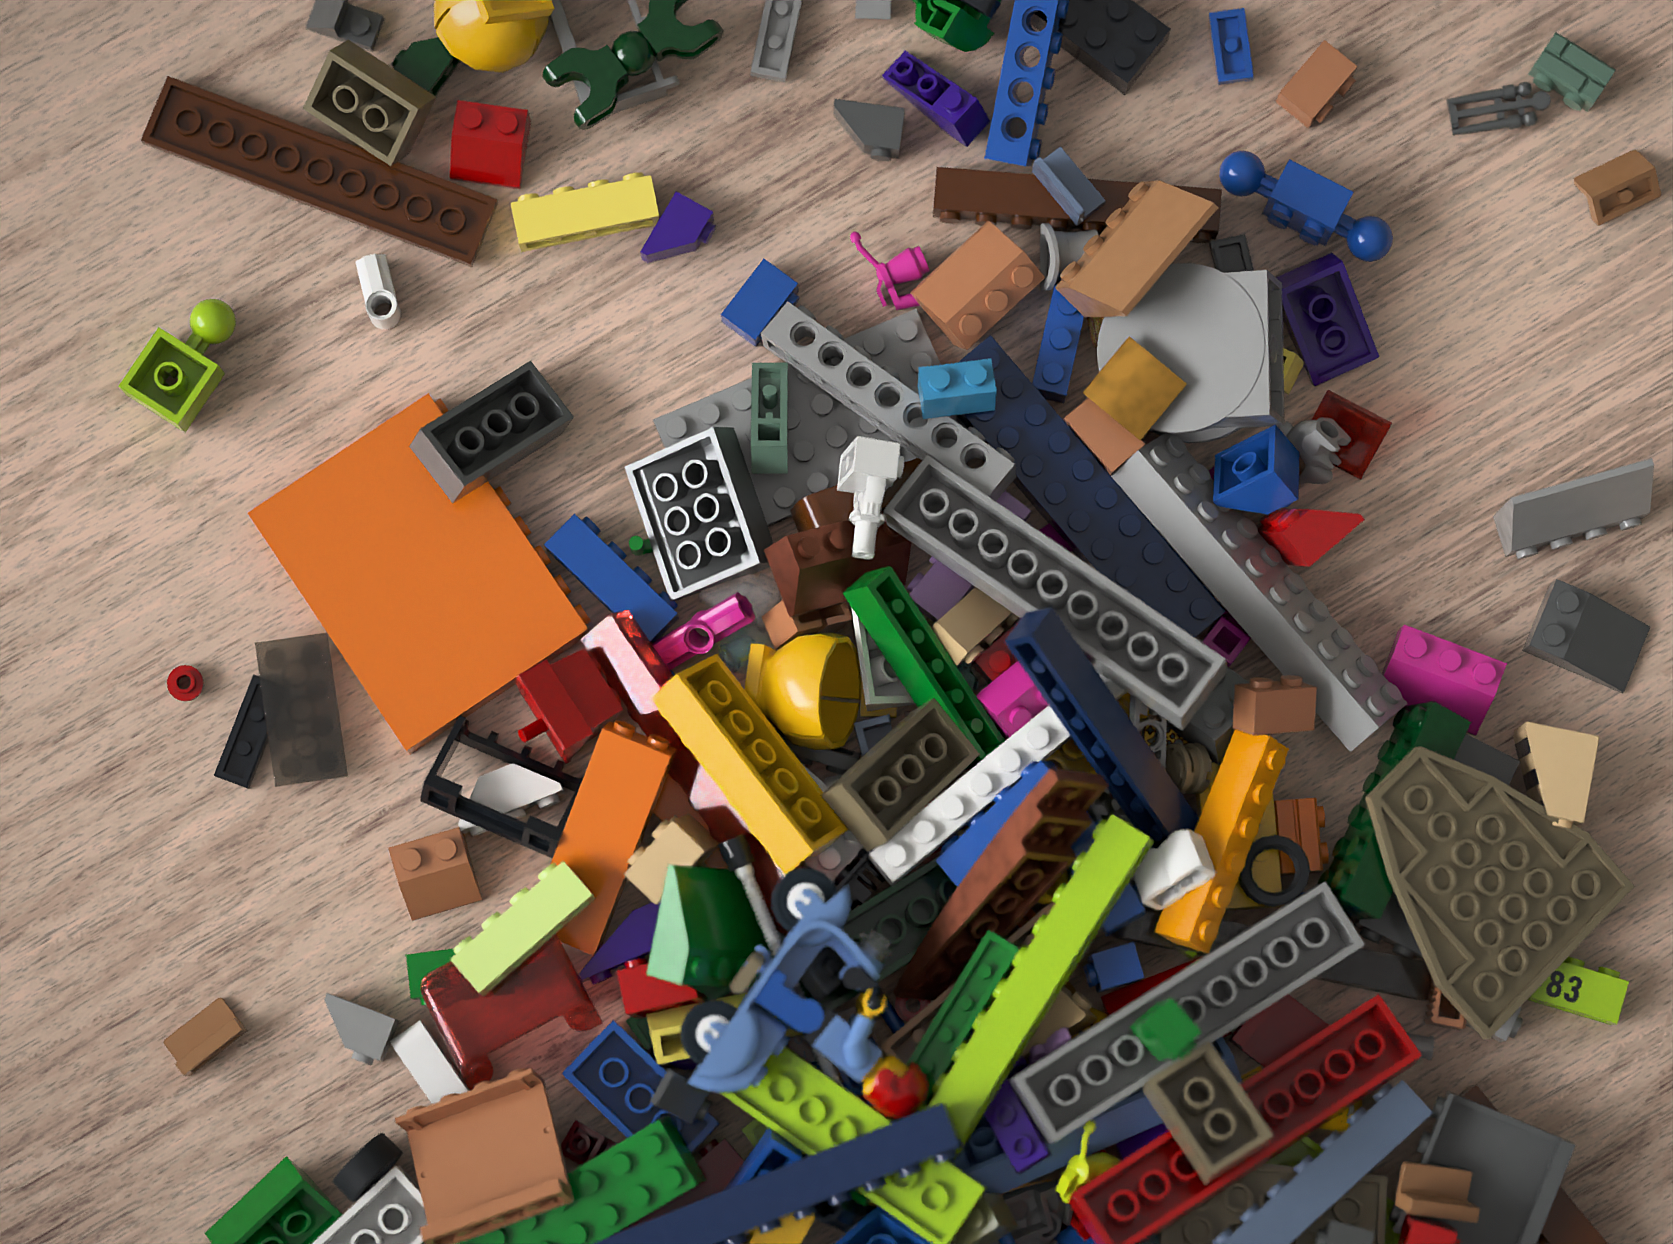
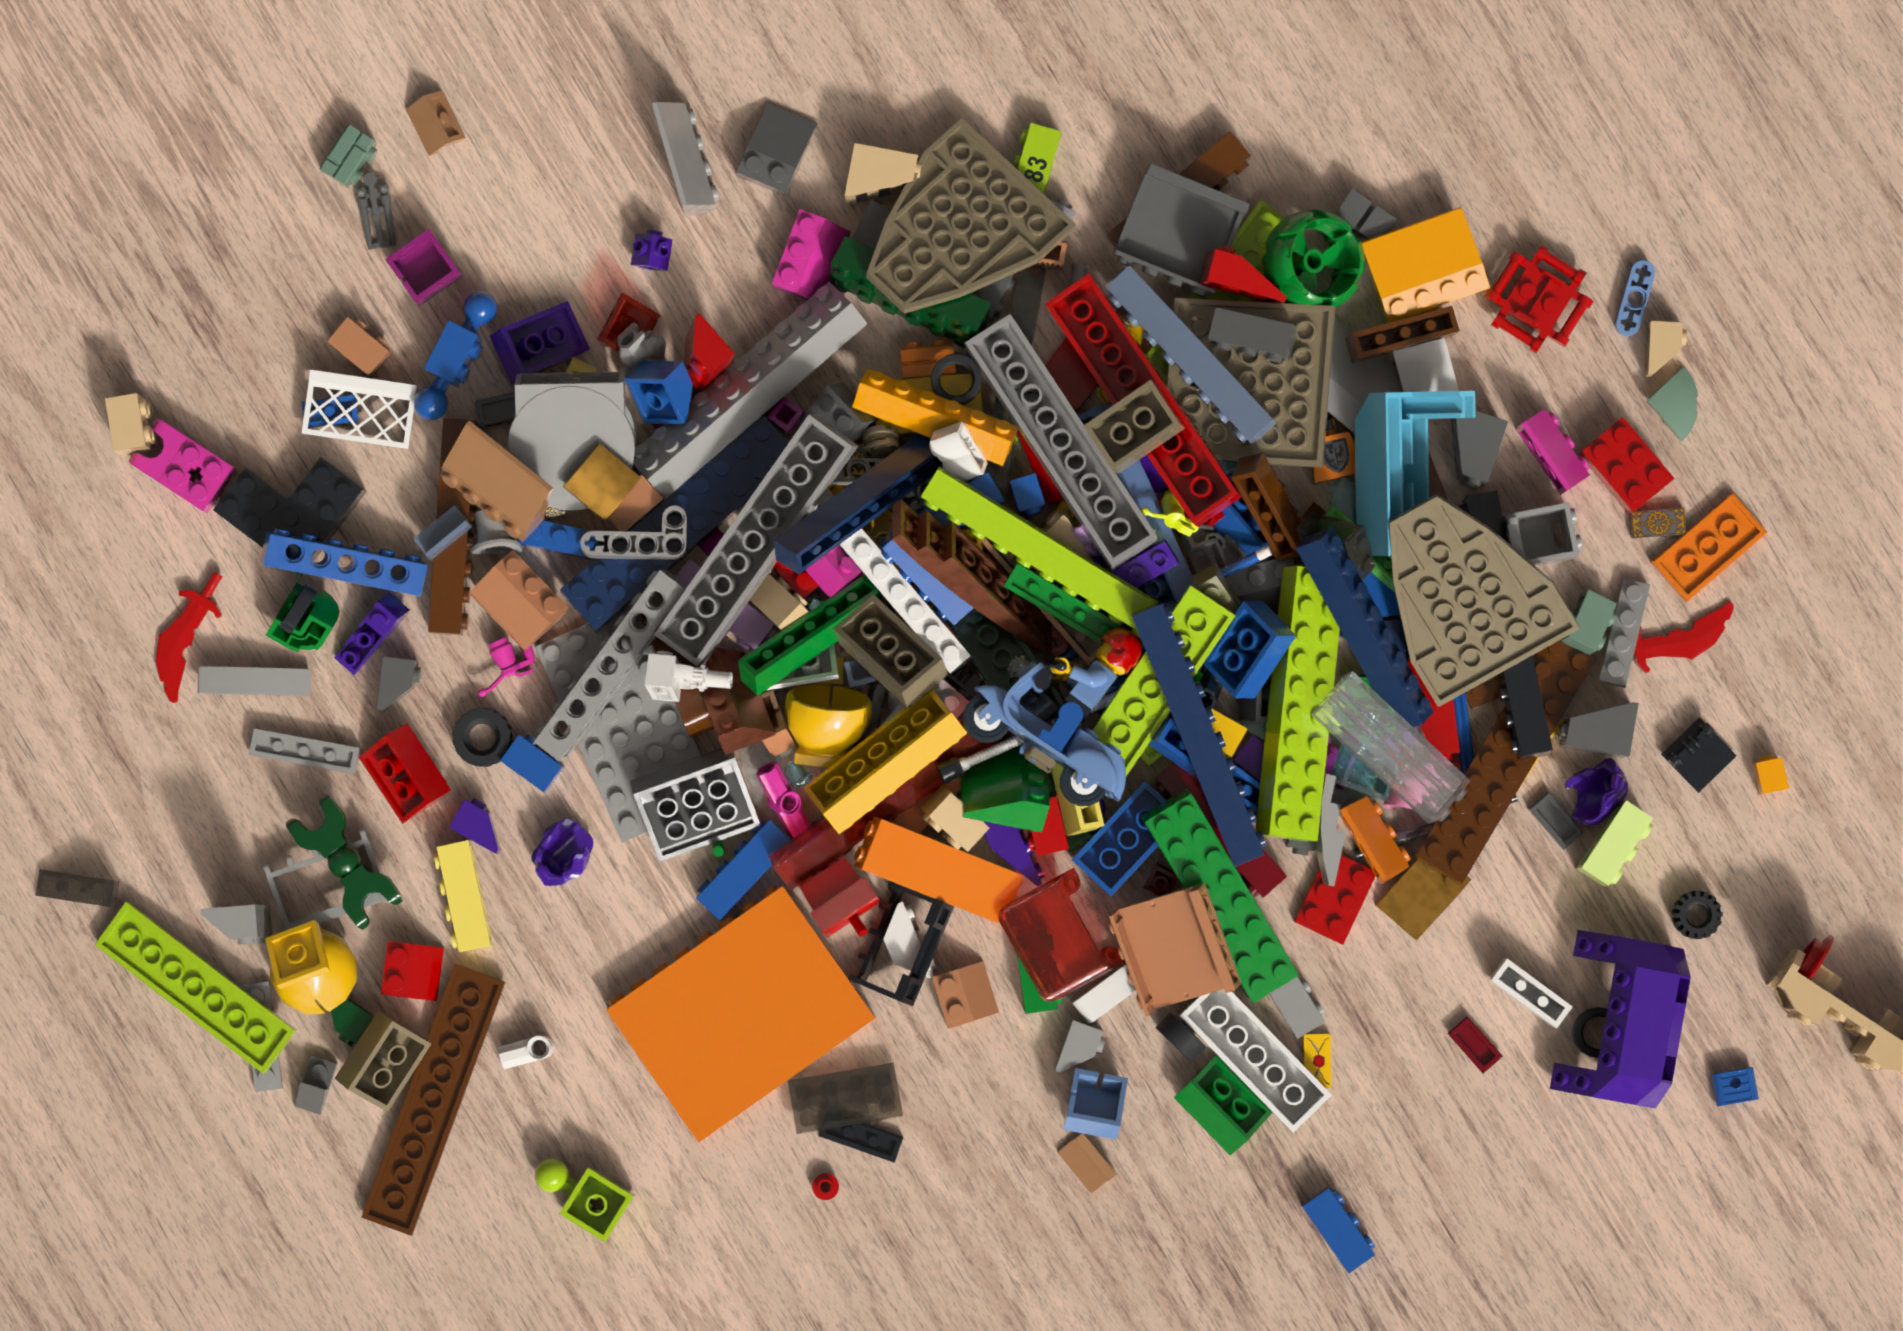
camera: 90 degrees left, 5 degrees up
(273, 1048) = (1092, 1109): none -> medium blue piece
(491, 431) = (636, 960): dark grey brick -> none
(522, 928) = (1007, 925): yellowish green brick -> none
(639, 340) = (562, 852): none -> dark purple hair
(681, 1098) = (1129, 807): dark grey slope -> none
(750, 138) = (404, 773): none -> red slope
(769, 418) = (622, 754): sand green slope -> none
(804, 212) = (468, 722): none -> black tyre
(957, 388) = (604, 613): dark azure brick -> none
(1057, 432) = (634, 539): none -> light grey beam
(1166, 1030) = (1077, 456): green brick -> none
(1265, 86) = (365, 386): none -> white fence
(1274, 706) = (836, 379): nougat brick -> none
(1426, 168) = (424, 267): none -> magenta piece
(1435, 1192) = (1186, 263): medium nougat panel -> none
(1447, 466) = (651, 251): none -> dark purple brick

